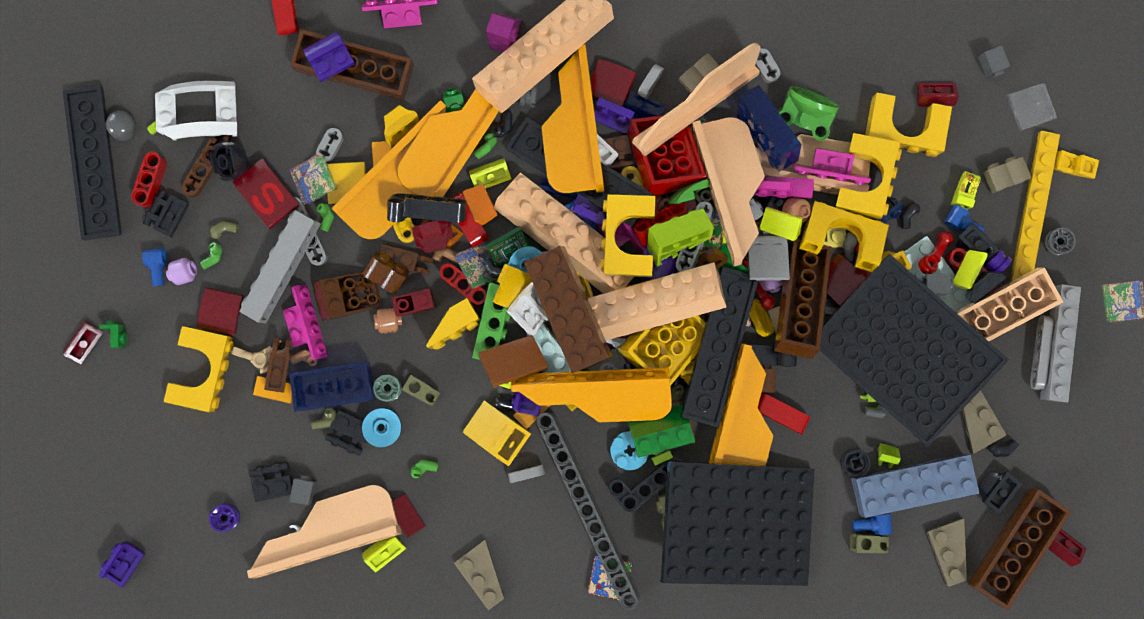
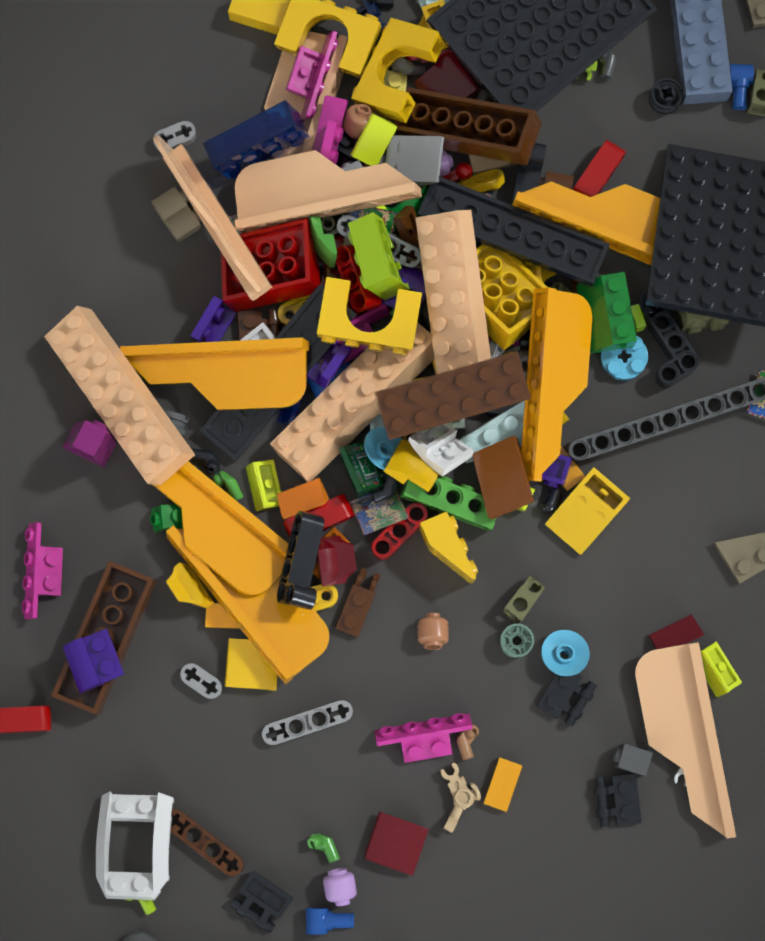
camera: 85 degrees left, 5 degrees down
(146, 170) = (203, 918): red beam -> none
(206, 395) = (502, 873): yellow arch -> none
(216, 519) = (666, 860): dark purple wheel -> none
(222, 226) = (288, 830): olive arm -> none
(228, 160) = (206, 809): black cylinder -> none
(266, 193) = (254, 766): dark red slope -> none
(278, 367) = (476, 773): reddish brown hinge -> none
(279, 267) = (350, 758): light grey brick -> none
(313, 179) = (242, 705): clear tile -> none
(326, 420) = (548, 722): olive arm -> none
(327, 216) = (290, 694): bright green arm -> none
(332, 386) = (508, 707): clear blue brick -> none
(346, 296) = (395, 679): reddish brown slope -> none
(386, 272) = (373, 624): reddish brown brick -> none
(414, 302) = (415, 594): dark red slope -> none
(422, 466) = (617, 608): bright green arm -> none
(447, 253) = (359, 544): medium nougat arm -> none
(526, 473) = (639, 482): light grey beam -> none
(611, 82) = (170, 321): dark red slope -> none
(643, 107) = (205, 288): clear blue slope -> none
(650, 81) = (175, 274): light grey beam -> none
(809, 110) = (239, 91): bright green piece -> none
(888, 454) = (660, 56): lime tile -> none

